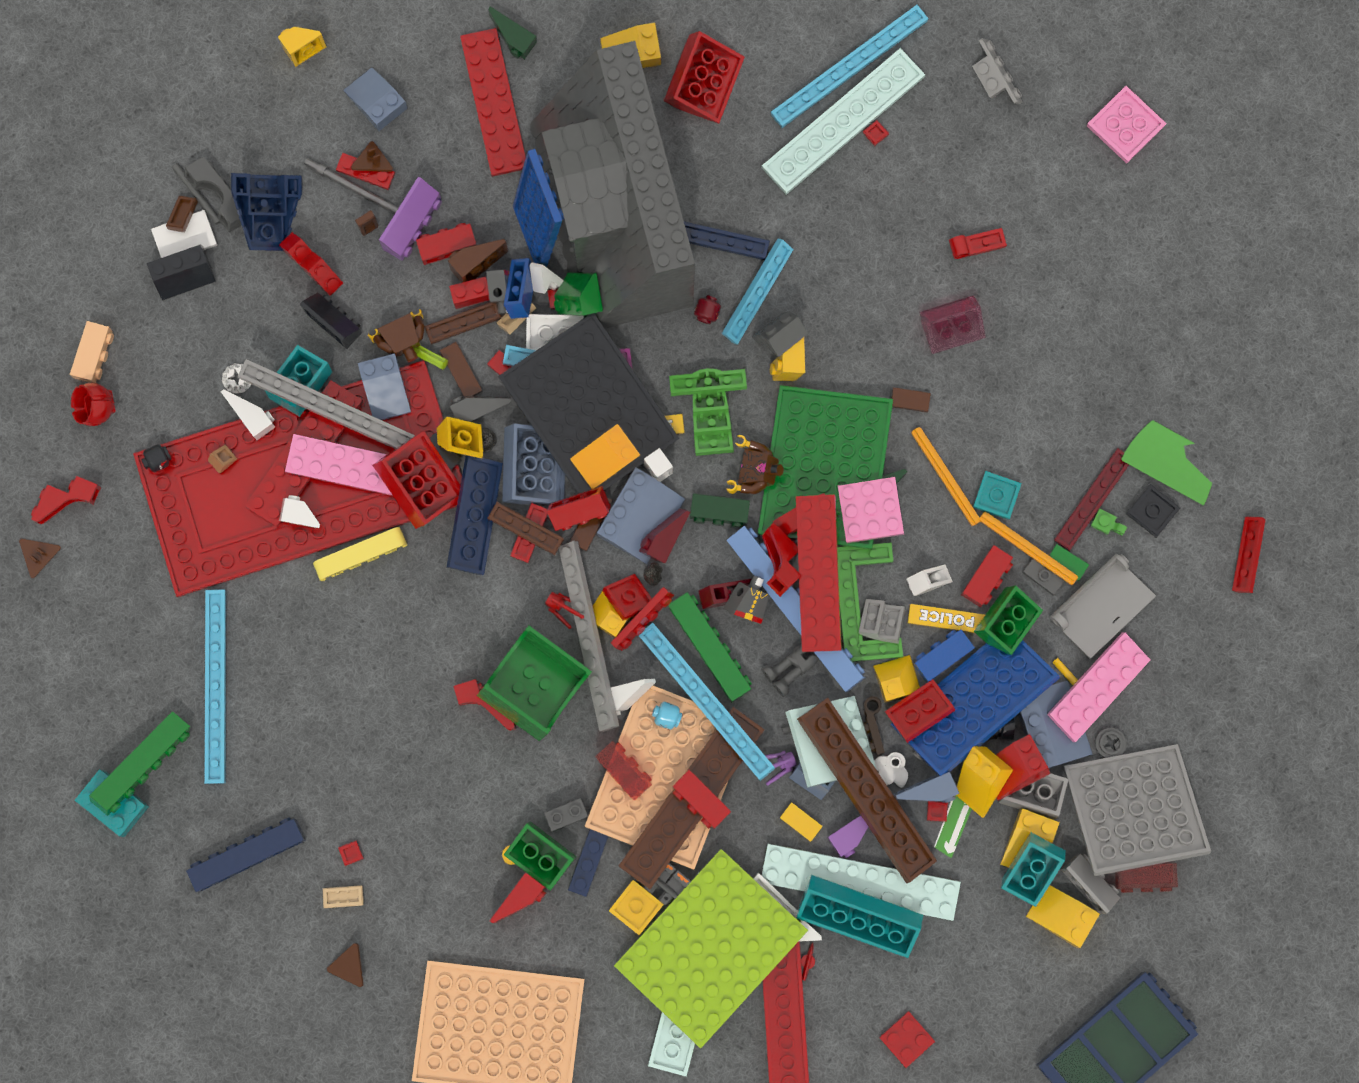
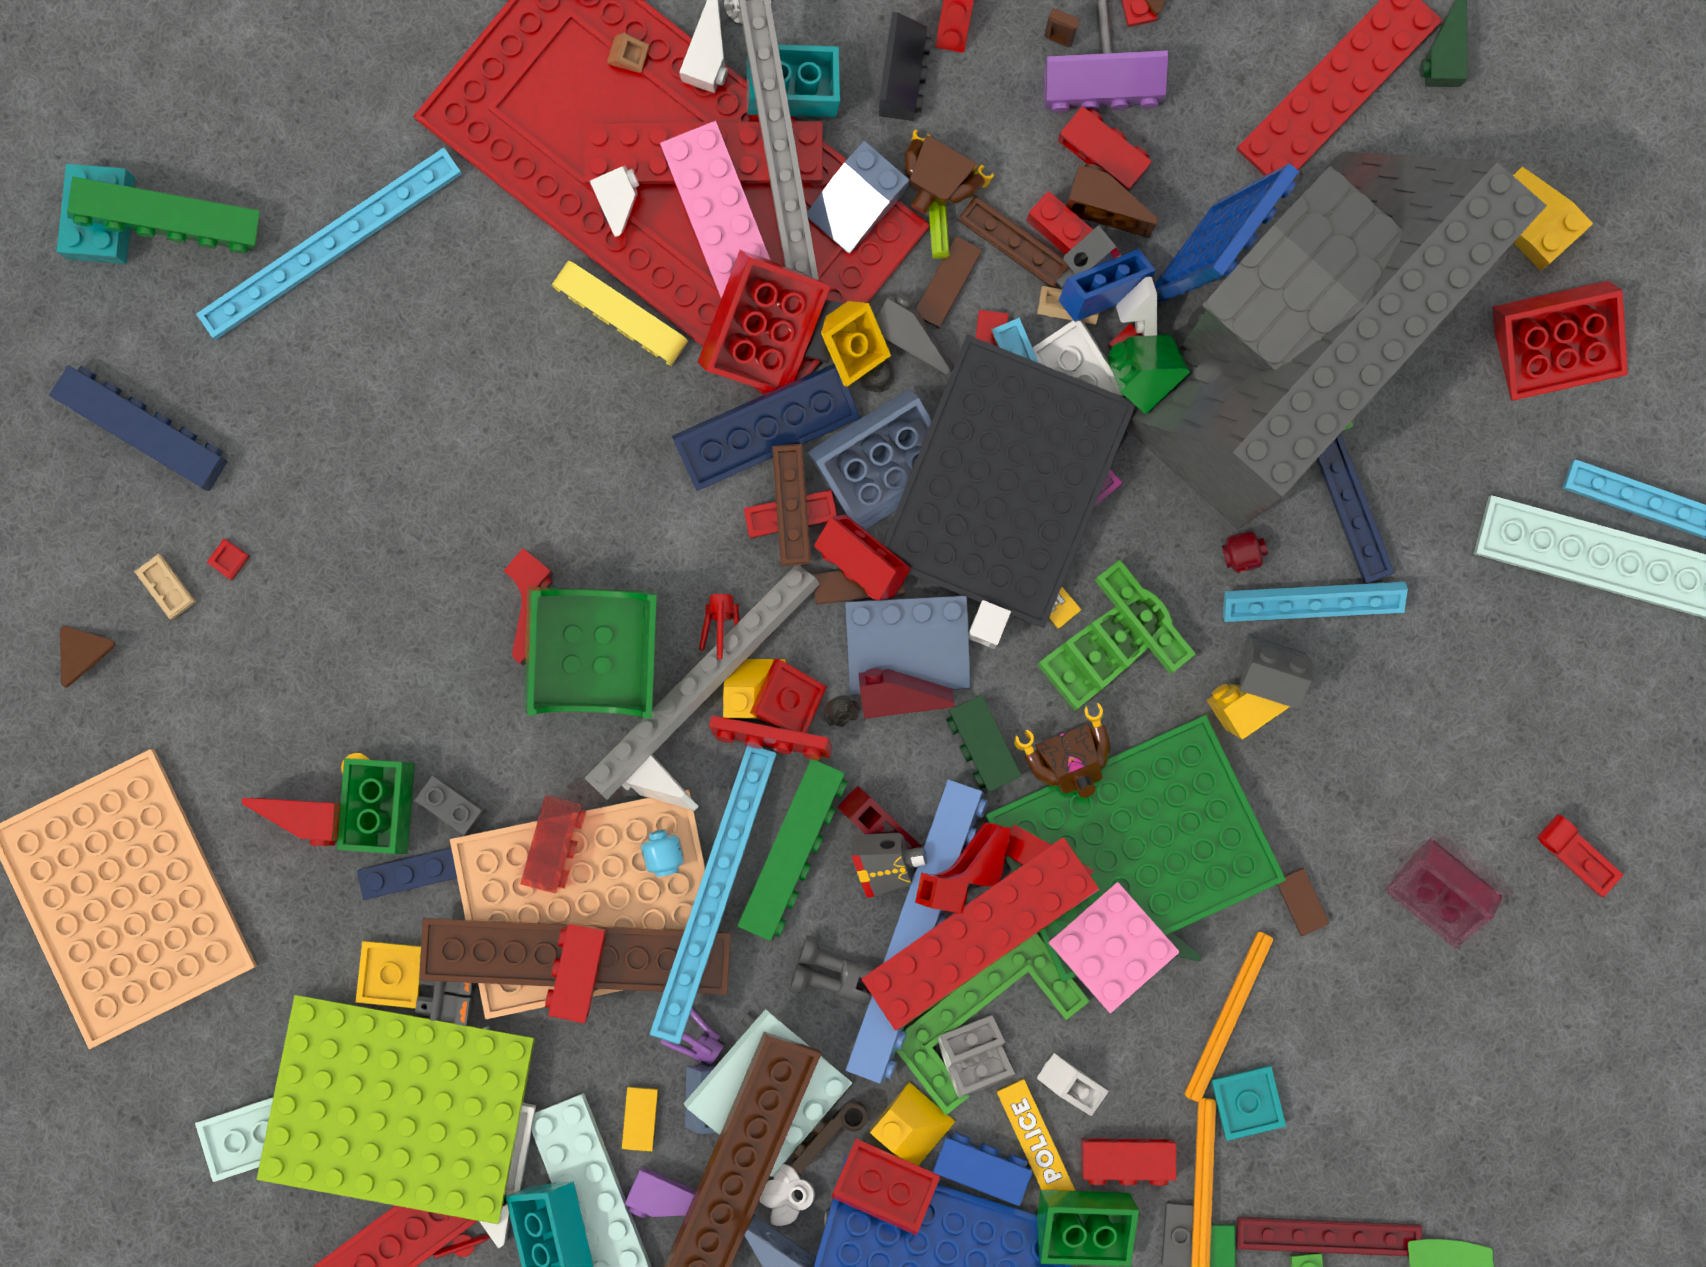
camera: 60 degrees right, 5 degrees up
(605, 456) = (952, 546): light orange slope -> none
(875, 133) = (1640, 619): red tile -> none

